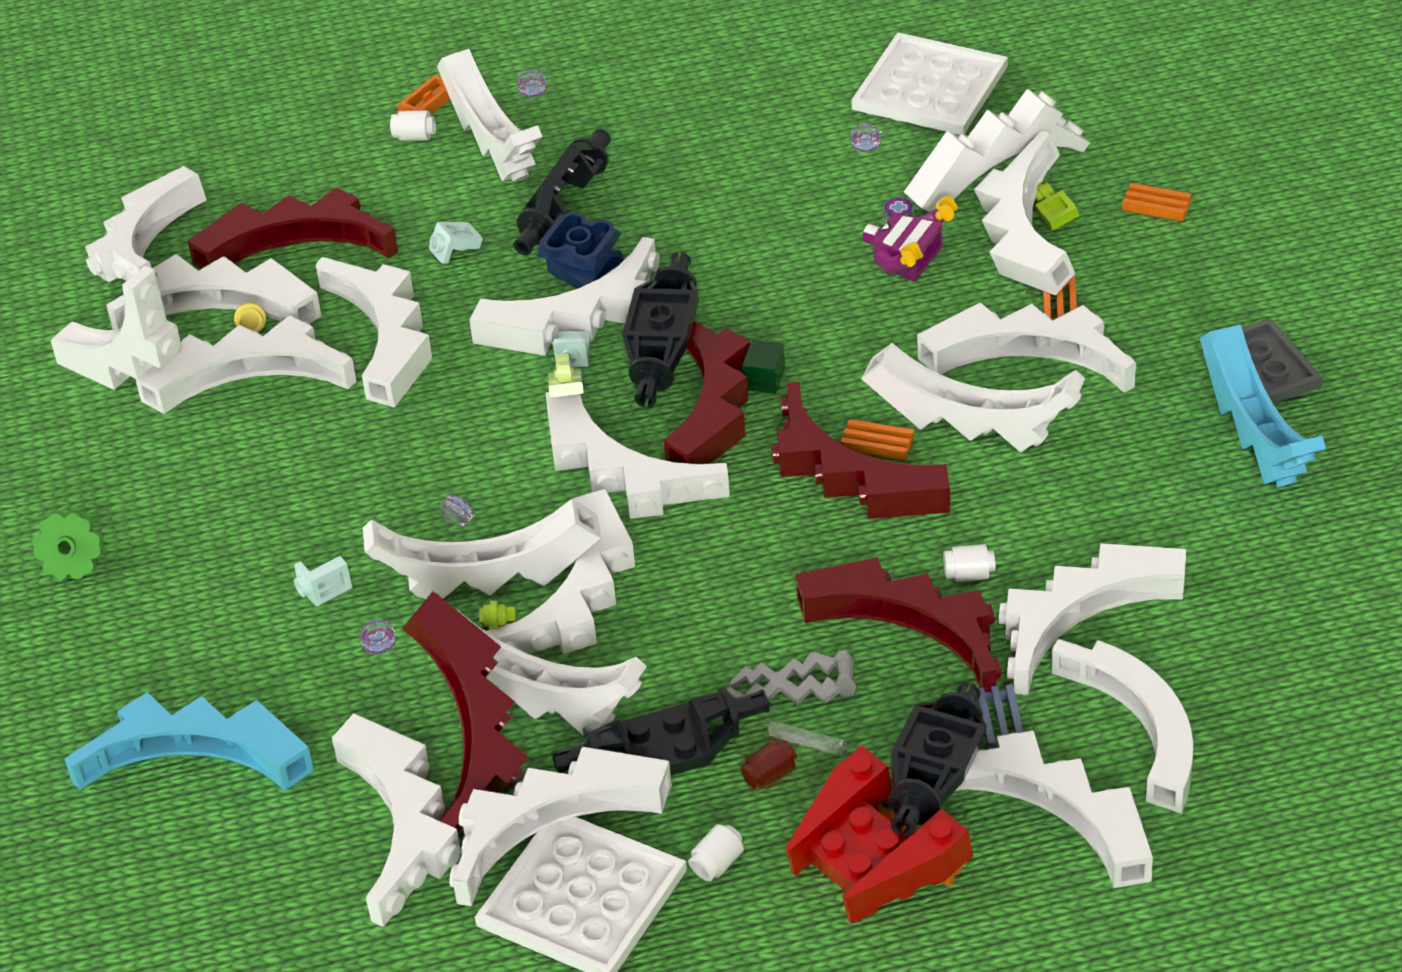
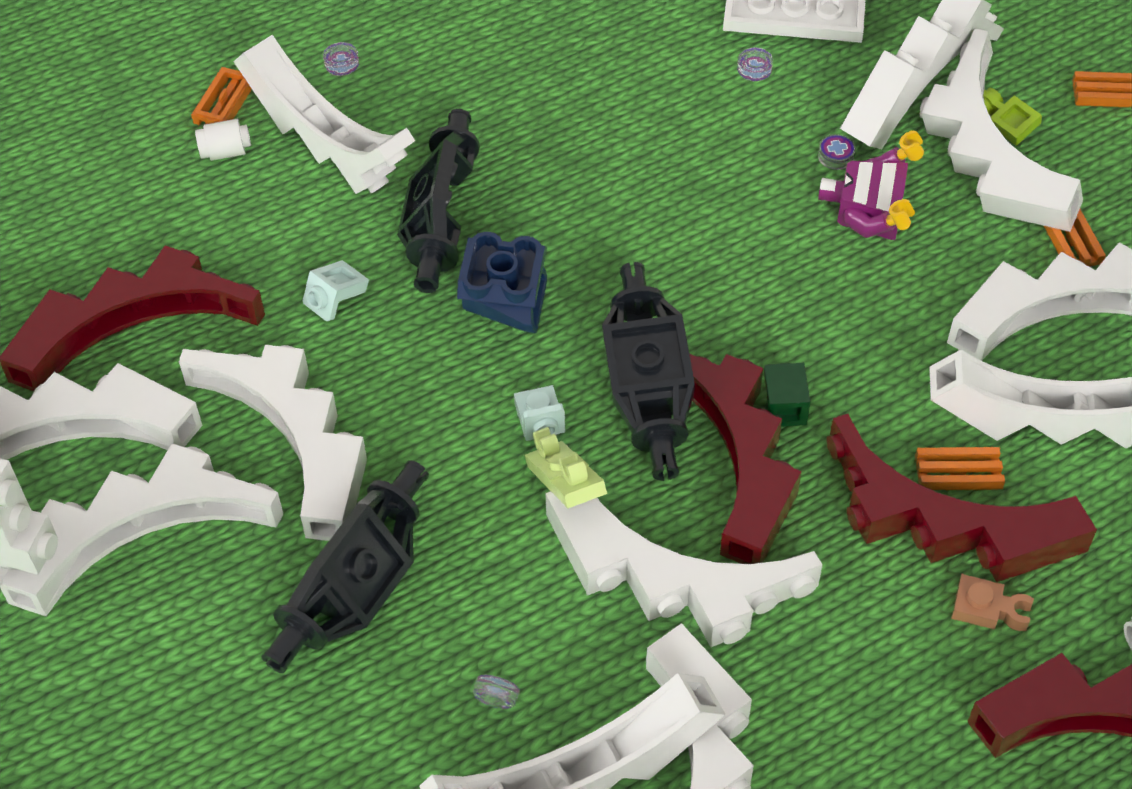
camera: 20 degrees left, 10 degrees up
(250, 316) = (115, 451): light yellow plate -> none
(386, 415) = (352, 570): none -> black plate
(534, 323) = (484, 388): white arch -> none
(849, 526) = (983, 603): none -> nougat plate

